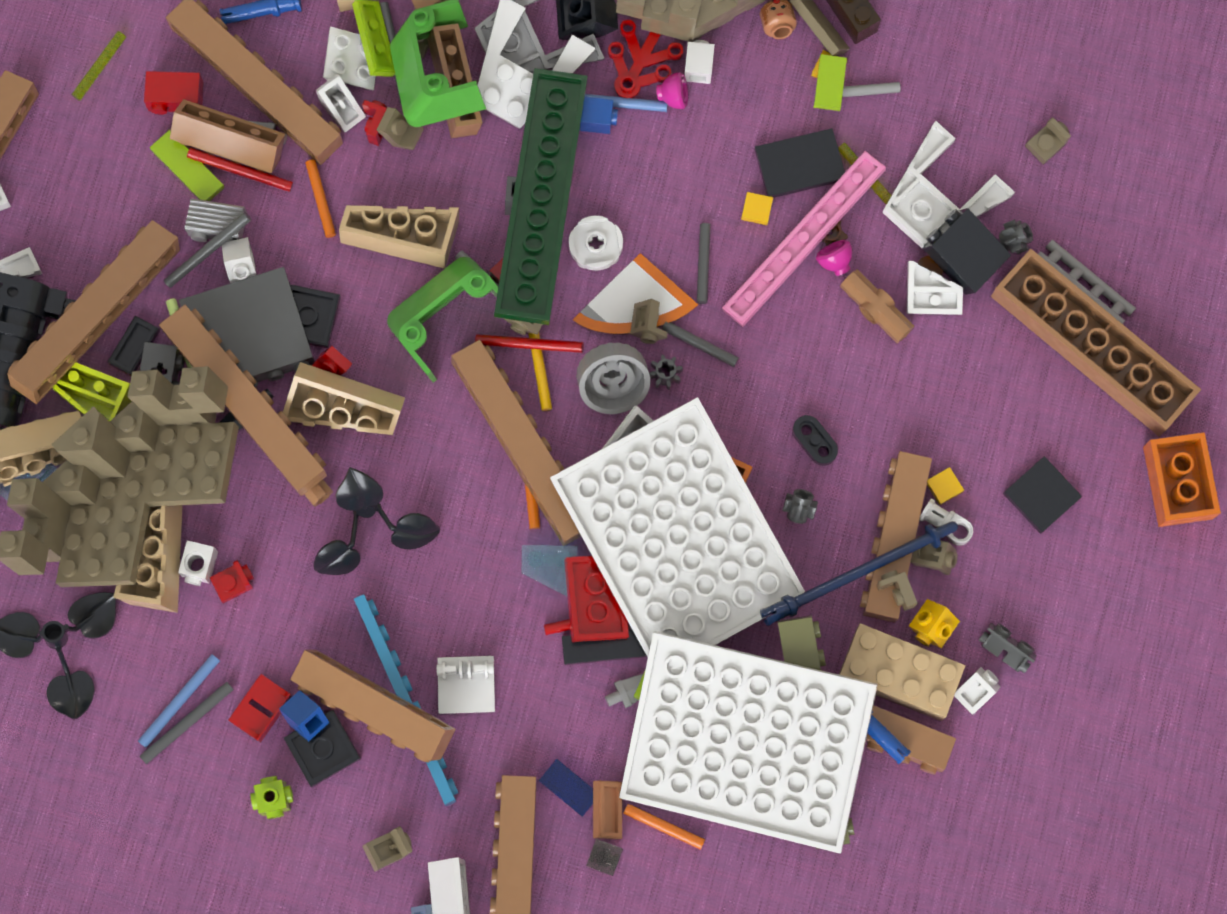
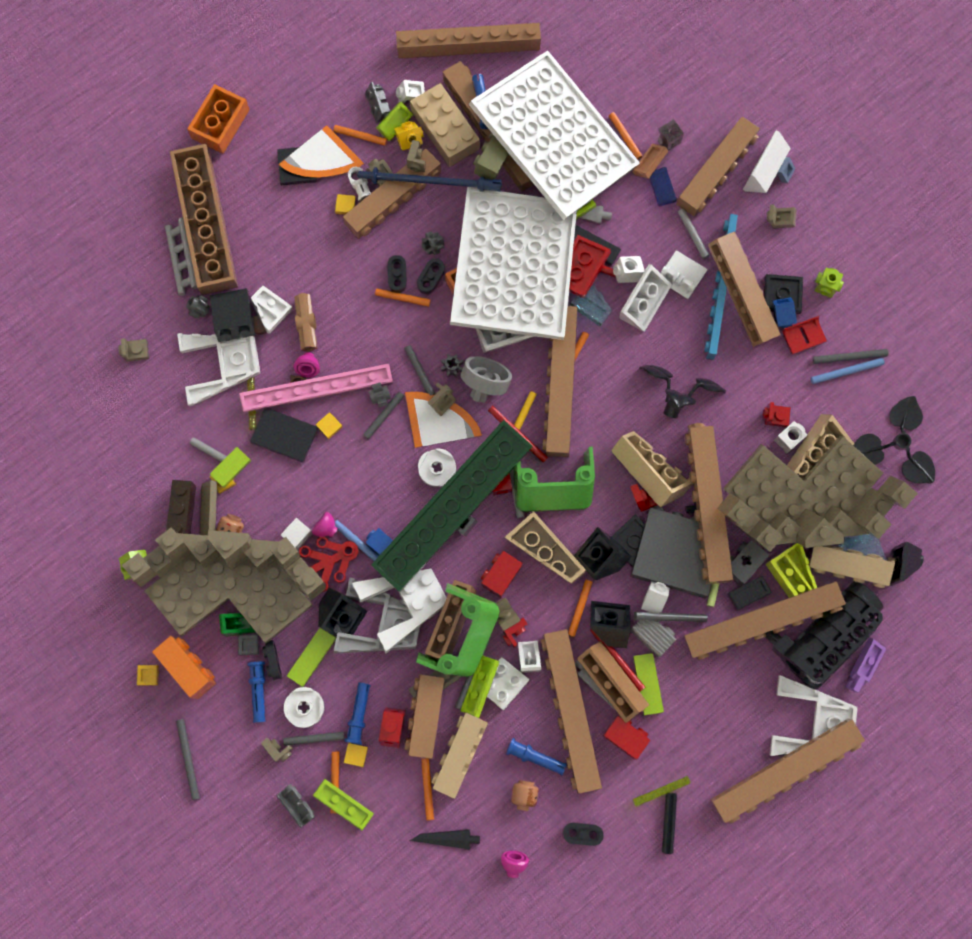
camera: 145 degrees left, 0 degrees up
(68, 38) = (669, 823): none -> black axle
(274, 201) = (611, 623): none -> black slope
(333, 267) = (601, 555): none -> black slope
(435, 173) = (501, 573): none -> red brick
(488, 615) = (645, 298): none -> white slope
(489, 751) = (693, 233): none -> light grey bar
(527, 645) = (628, 269): none -> white brick
(724, 279) = (379, 394): none -> dark grey gear
(772, 466) = (430, 277): none -> black plate
(787, 418) = (402, 297): none -> orange bar
(957, 812) = (468, 40): none -> medium nougat brick
(968, 635) = (394, 119): none -> lime tile
(997, 589) = (360, 135): none -> orange bar
(1020, 526) = (322, 156): none -> white sticker

